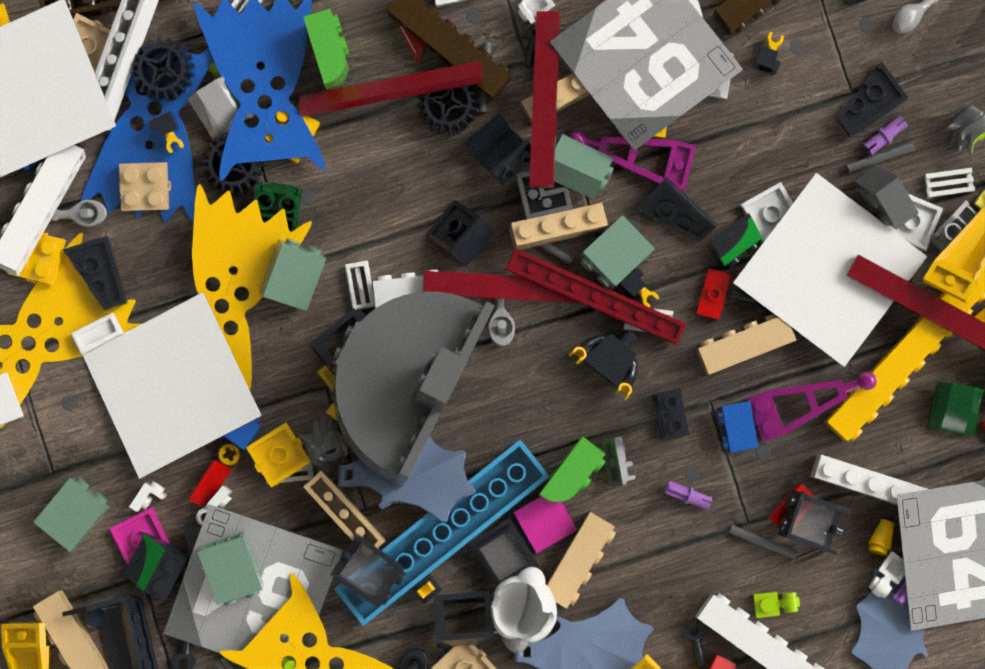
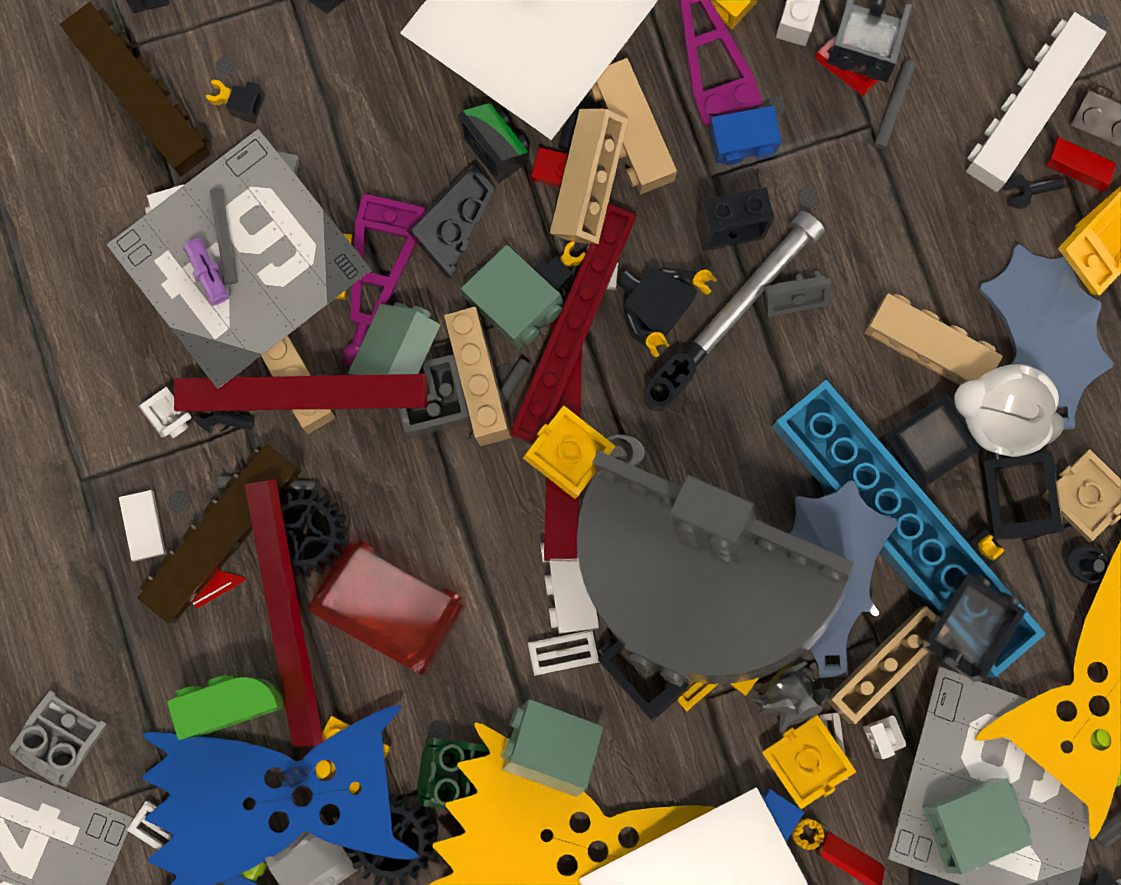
camera: 90 degrees left, 5 degrees down
(220, 500) = (874, 846): white plate -> none
(277, 97) = (295, 777): none -> dark blue piece
(295, 511) = (884, 737): none -> white bracket
(392, 160) = (387, 608): none -> clear red windscreen
(460, 233) = (487, 512): black slope -> none
(499, 149) = (371, 457): black panel -> none
(501, 288) = (567, 451): none -> yellow plate
(544, 523) = (881, 390): dark pink tile -> none
(573, 472) = (818, 349): bright green brick -> none
(634, 32) = (205, 271): none -> medium lavender pin
(661, 44) = (223, 236): none -> dark grey bar
(664, 468) = (804, 230): none -> flat silver piece
(688, 495) = (838, 200): medium lavender axle -> none
(704, 309) = (589, 176): none -> tan brick
(768, 209) = (445, 96): white tile -> none
(768, 604) = (976, 97): lime plate -> none

